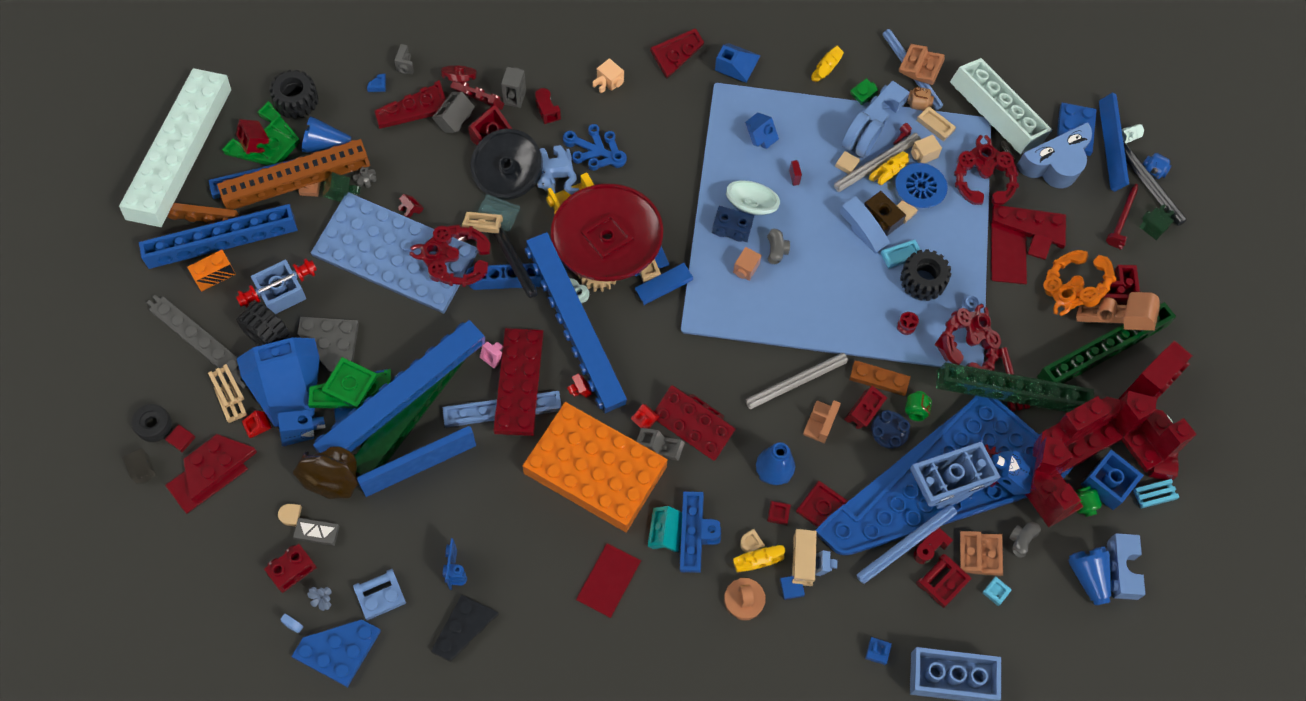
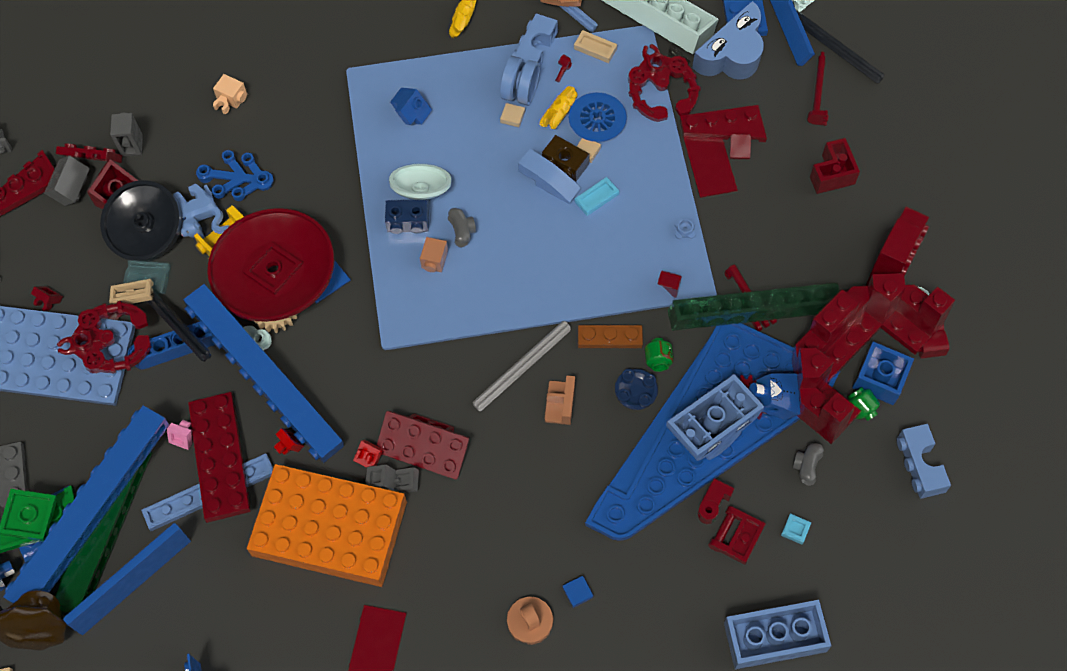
camera: 10 degrees left, 0 degrees up
(458, 73) = (61, 136): dark red plate -> none
(546, 109) = (173, 151): dark red leg -> none
(650, 272) = (331, 294): tan tile -> none
(664, 283) = (350, 302): blue tile -> none
(665, 528) = (423, 569): teal panel -> none
(676, 51) = (296, 45): dark red wing -> none
(696, 532) = (457, 563): blue plate -> none
(736, 62) = (363, 39): blue slope -> none
(751, 541) = (520, 556): tan tile -> none
(759, 558) = (533, 571): yellow hinge -> none
(775, 464) = (523, 464): blue cone -> none
(779, 513) = (541, 515): dark red tile -> none
(795, 172) = (459, 141): dark red tile -> none
(804, 557) = (581, 555): tan piece -> none
(820, 504) = (583, 492): dark red tile -> none
(824, 563) = (603, 556): medium blue tile -> none
(864, 91) = (510, 33): green bracket -> none
(866, 407) = (603, 373): dark red hinge -> none
(875, 163) = (540, 109): light grey axle -> none
(878, 651) = (688, 632): blue tile -> none
(906, 544) = (686, 507): medium blue axle -> none
(910, 319) = (623, 263): dark red wheel -> none
(920, 98) = (571, 24): medium nougat head -> none
(922, 287) = (627, 197): black tyre -> none
(926, 149) = (592, 77): tan brick -> none
(978, 331) = (699, 254): dark red piece -> none
(981, 553) = (769, 493): nougat slope -> none
(1073, 292) = (788, 185): orange piece -> none
(1093, 573) = (891, 479): blue cone -> none
(1102, 349) = (839, 231): dark green brick -> none
(1138, 314) = (861, 190): nougat plate -> none
(1156, 222) = (854, 86): clear green brick -> none
(1157, 165) = (838, 26): blue head -> none
(1170, 489) = (946, 365): medium azure tile -> none

